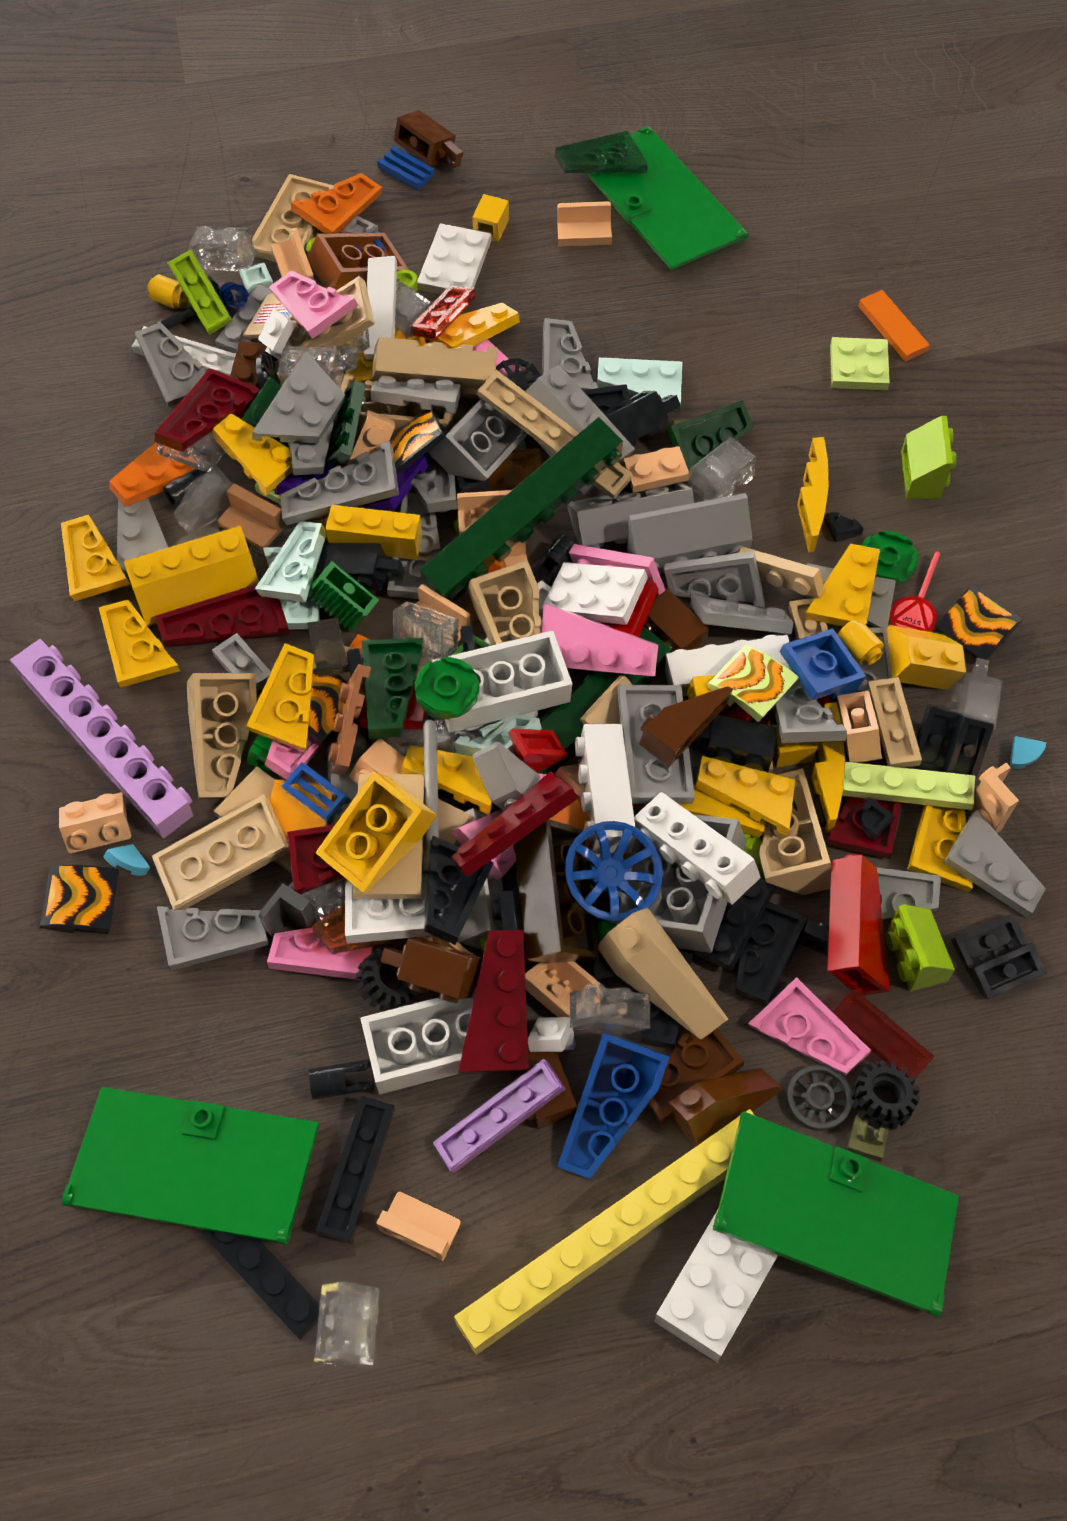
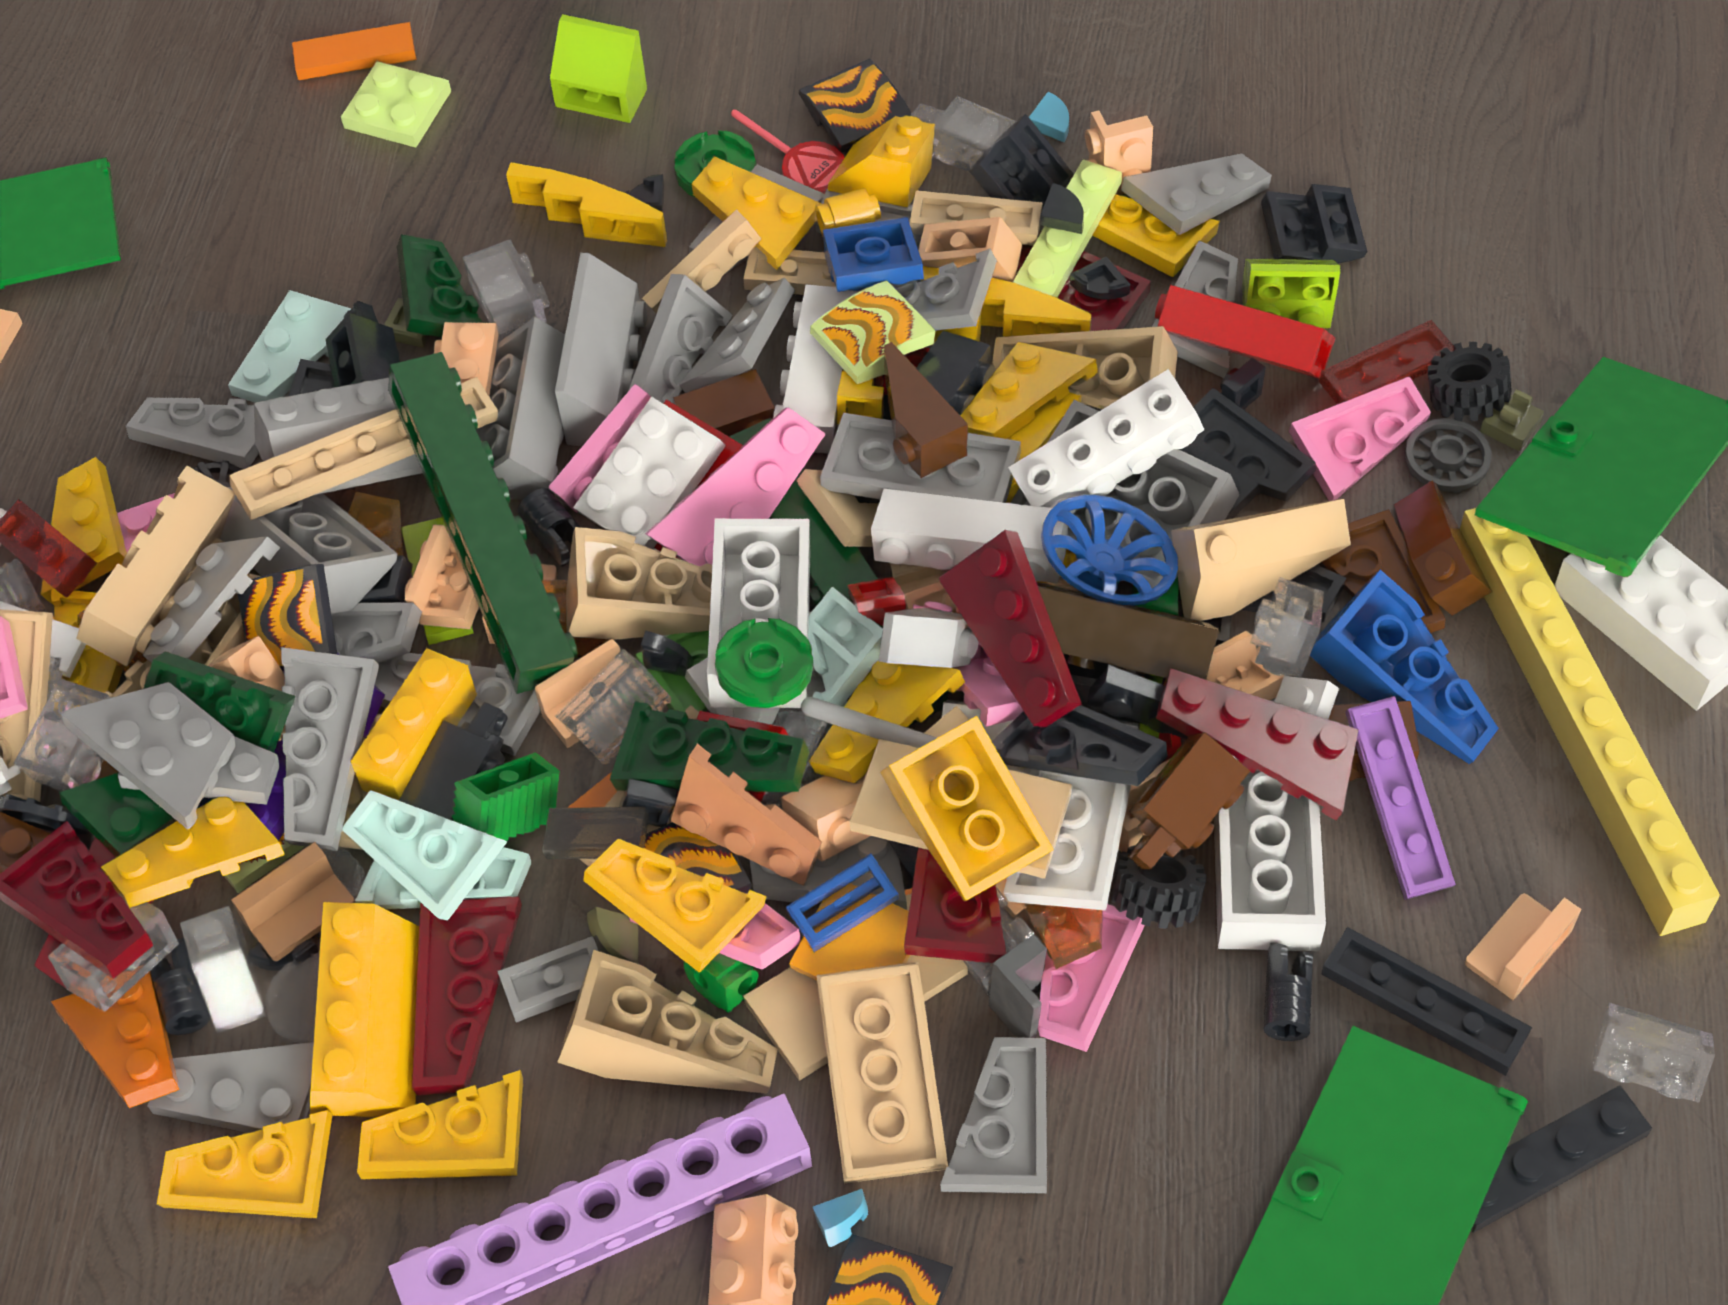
camera: 70 degrees left, 5 degrees down
(913, 771) = (1062, 210): none -> black tile

